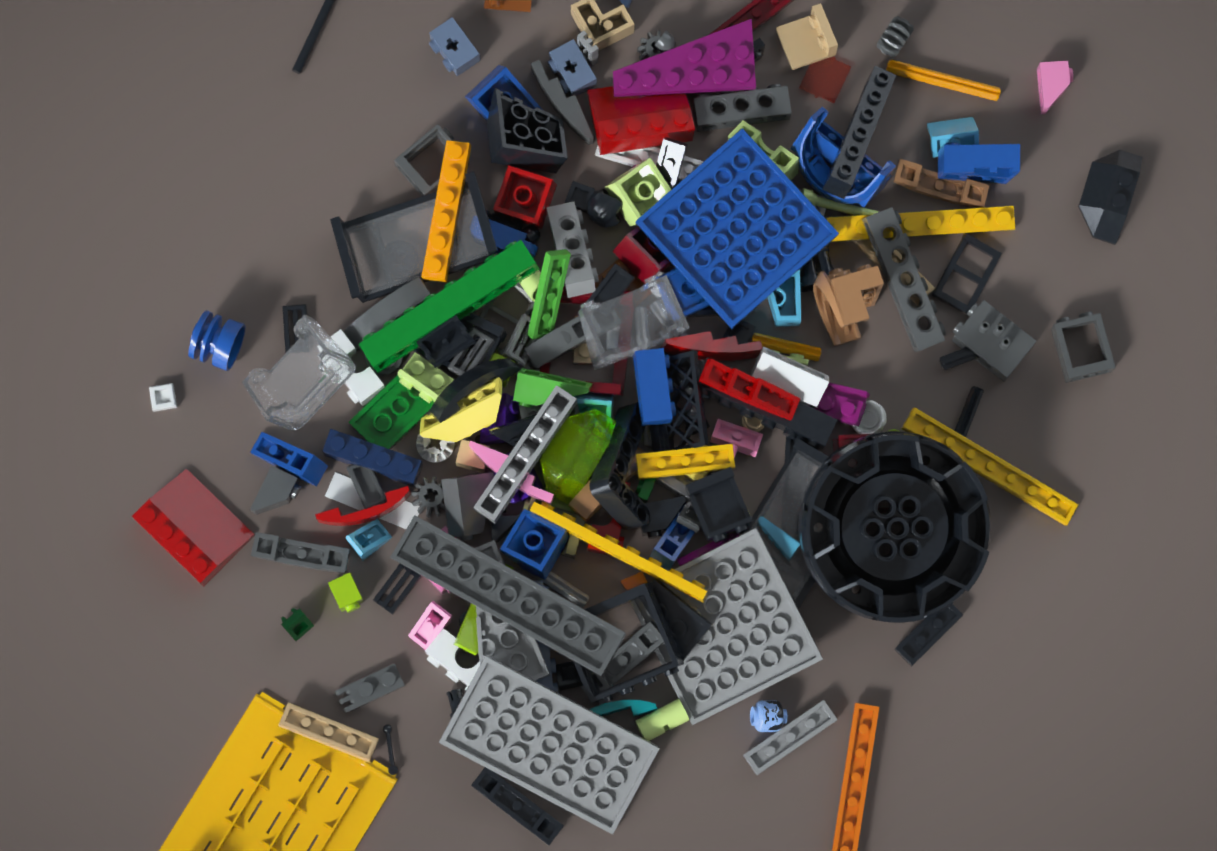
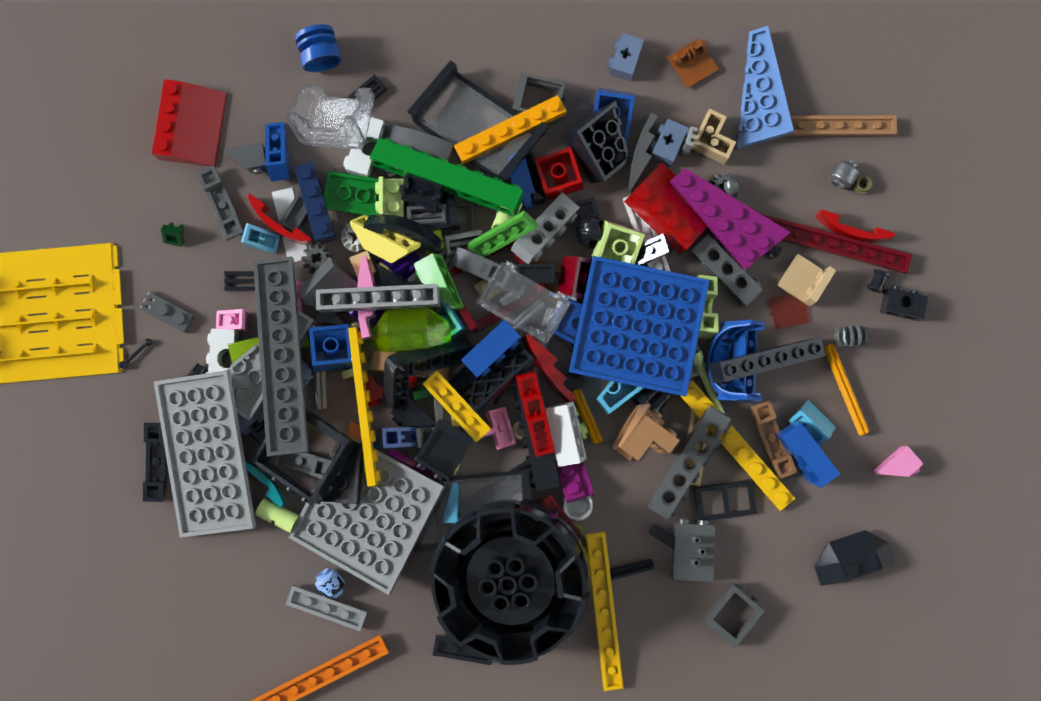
camera: 50 degrees right, 5 degrees up
(163, 397) = (261, 44): white tile -> none
(328, 732) = (116, 306): tan tile -> none
(346, 593) = (215, 251): lime brick -> none

